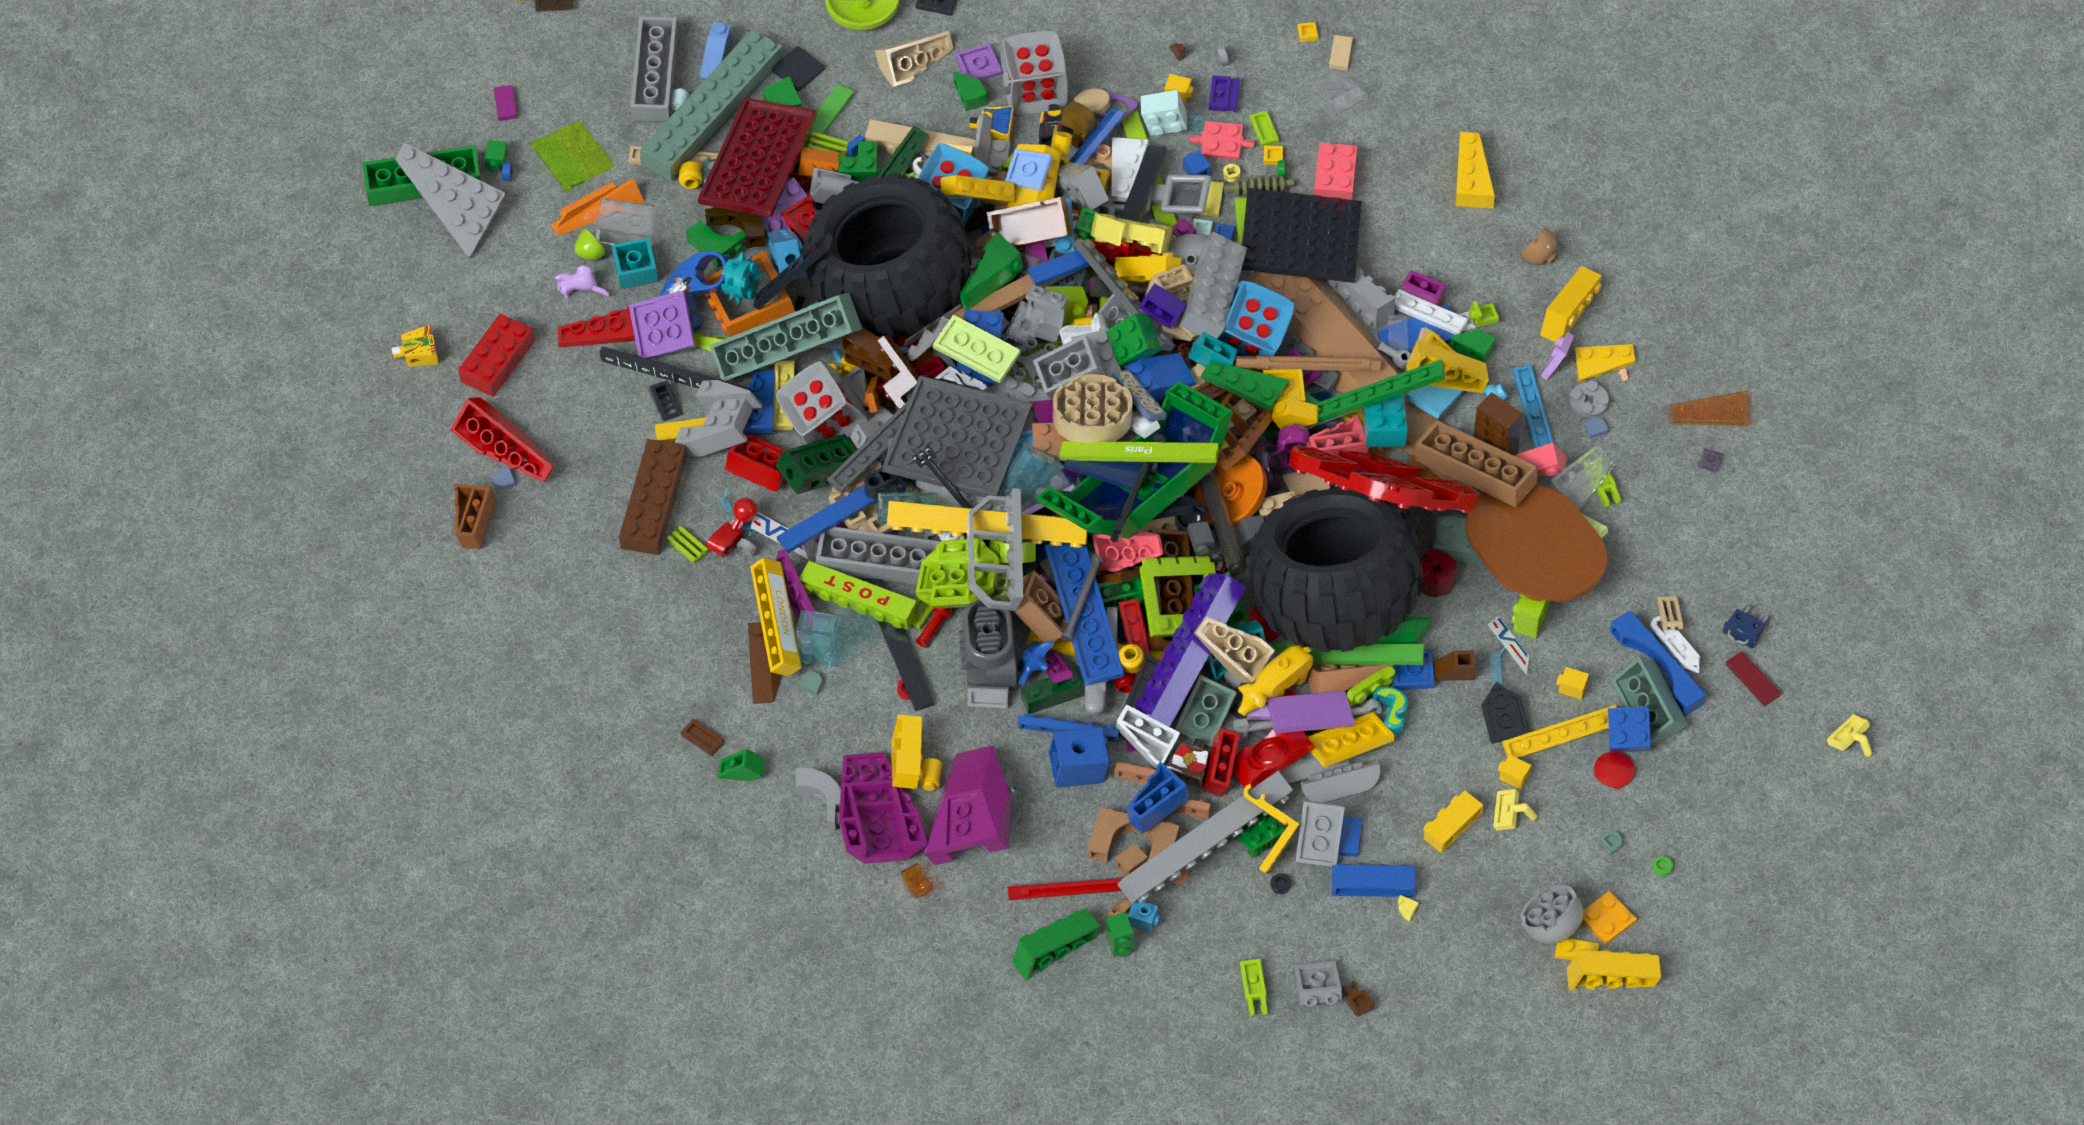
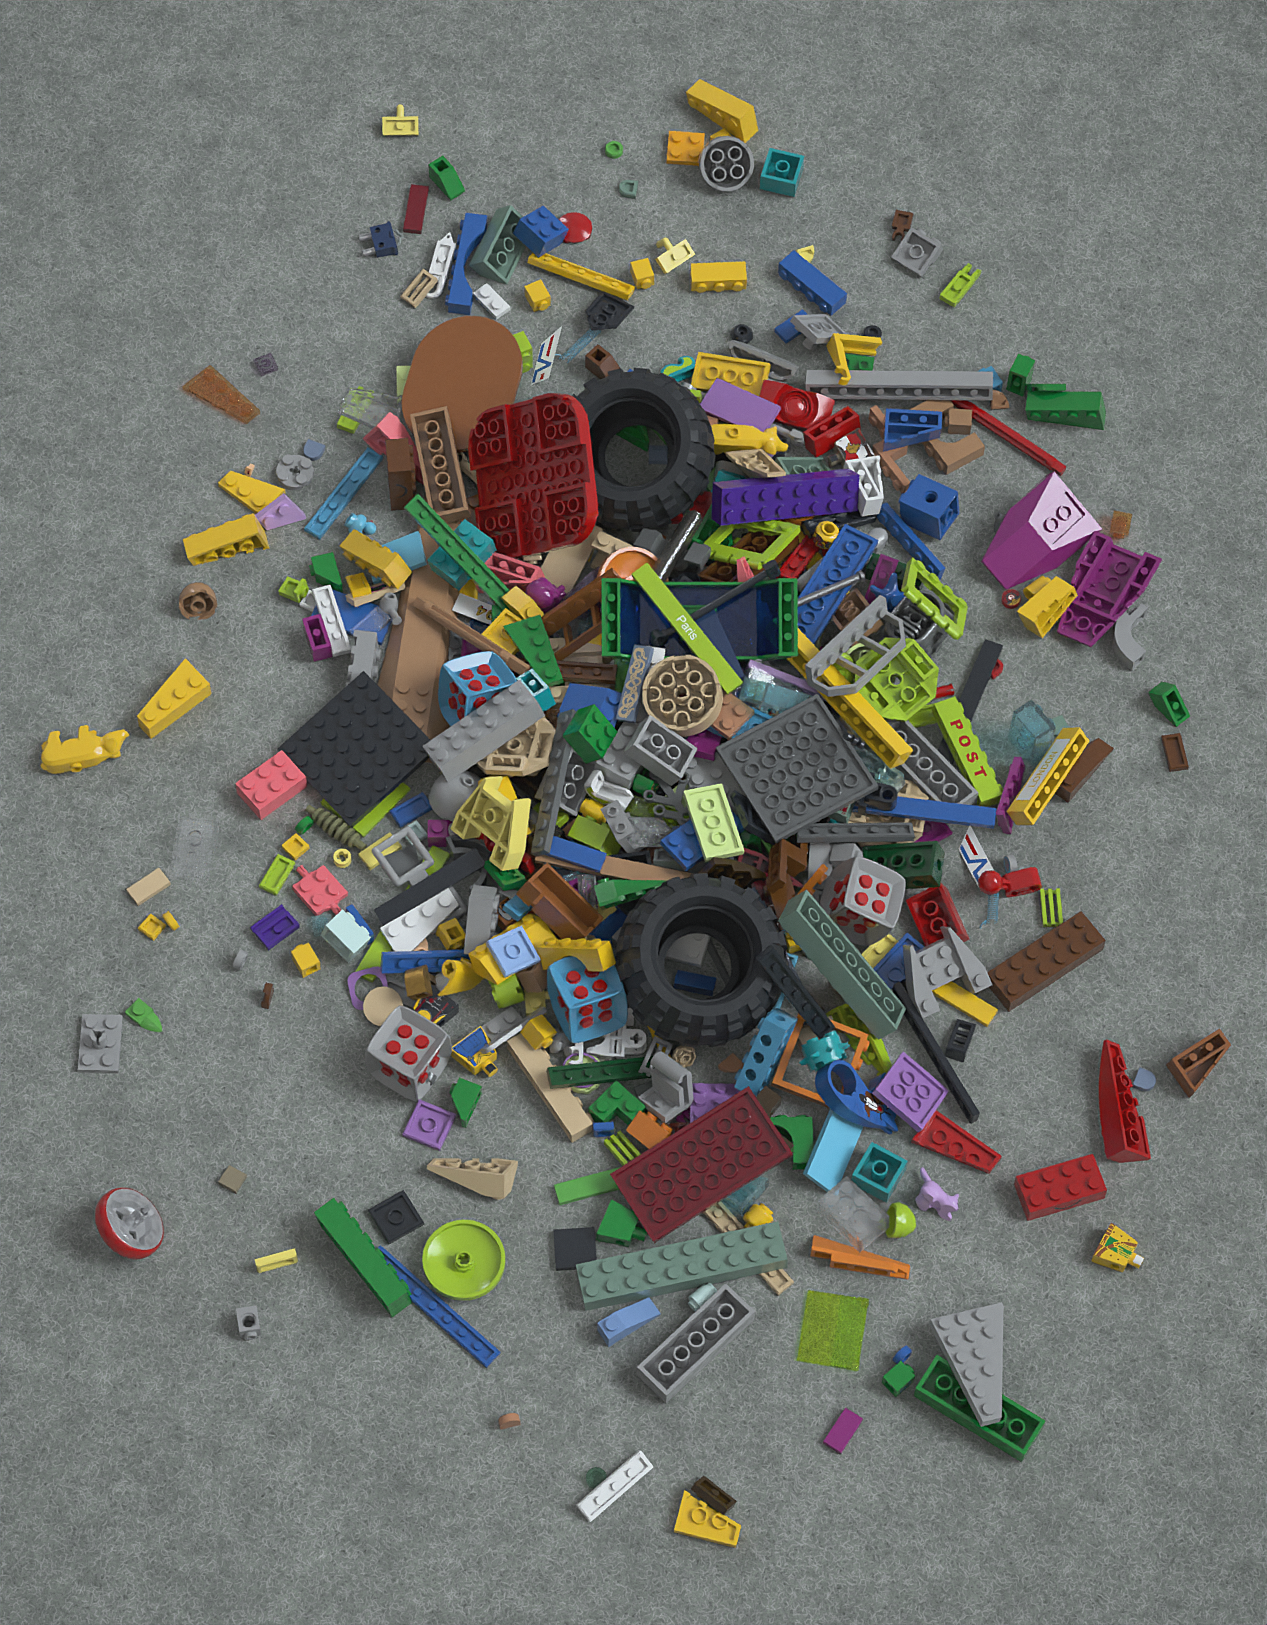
camera: 140 degrees left, 5 degrees up
(677, 242) = (832, 1151): none -> medium azure tile
(799, 217) = (718, 1079): red wing -> none
(946, 753) = (1011, 598): none -> tile
(1006, 693) = (916, 569): none -> lime hinge
(1088, 944) = (1047, 387): none -> green tile
(1162, 306) = (541, 738): dark purple brick -> none
(1167, 138) = (360, 921): none -> blue tile
(1196, 164) = (364, 882): blue brick -> none
(1298, 41) = (169, 919): none -> yellow tile
(1382, 798) = (742, 329): none -> black plate
(1490, 89) = (80, 752): none -> yellow animal
(1501, 953) = (781, 172): none -> teal brick
(1605, 653) = (491, 301): none -> white plate
(1757, 715) = (445, 177): none -> green slope

